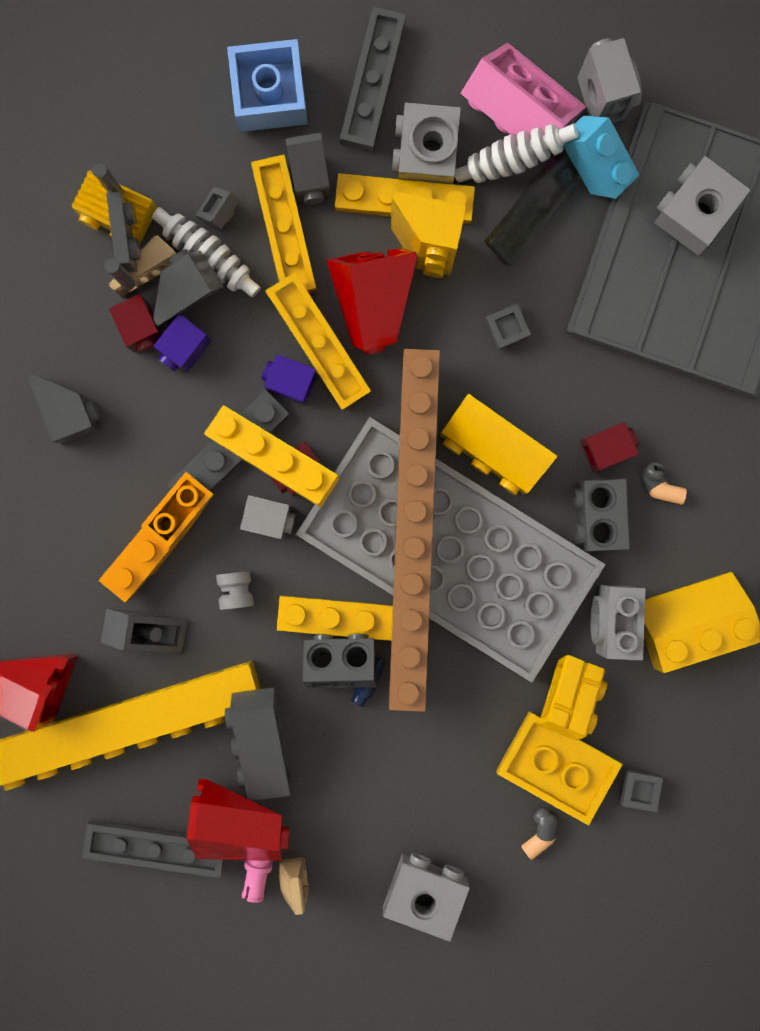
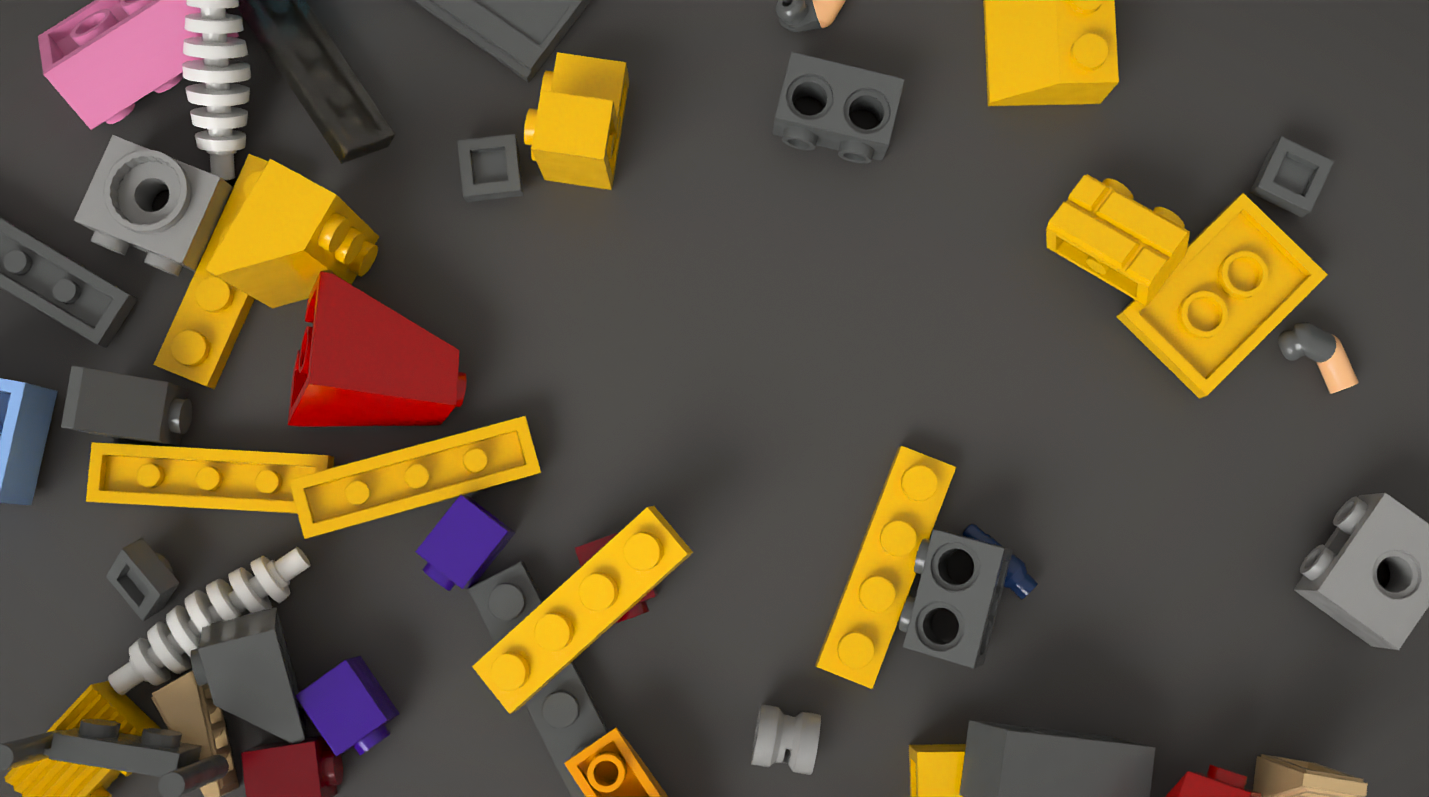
camera: 75 degrees left, 5 degrees down
(267, 517) = (682, 648): light grey brick -> none
(414, 530) = (777, 410): medium nougat brick -> none
(493, 568) = (821, 364): light grey plate -> none
(496, 446) = (677, 238): yellow slope -> none
(550, 369) = (579, 120): none -> yellow brick
(610, 446) = (731, 64): dark red brick -> none
(618, 622) = (1015, 130): light grey brick -> none

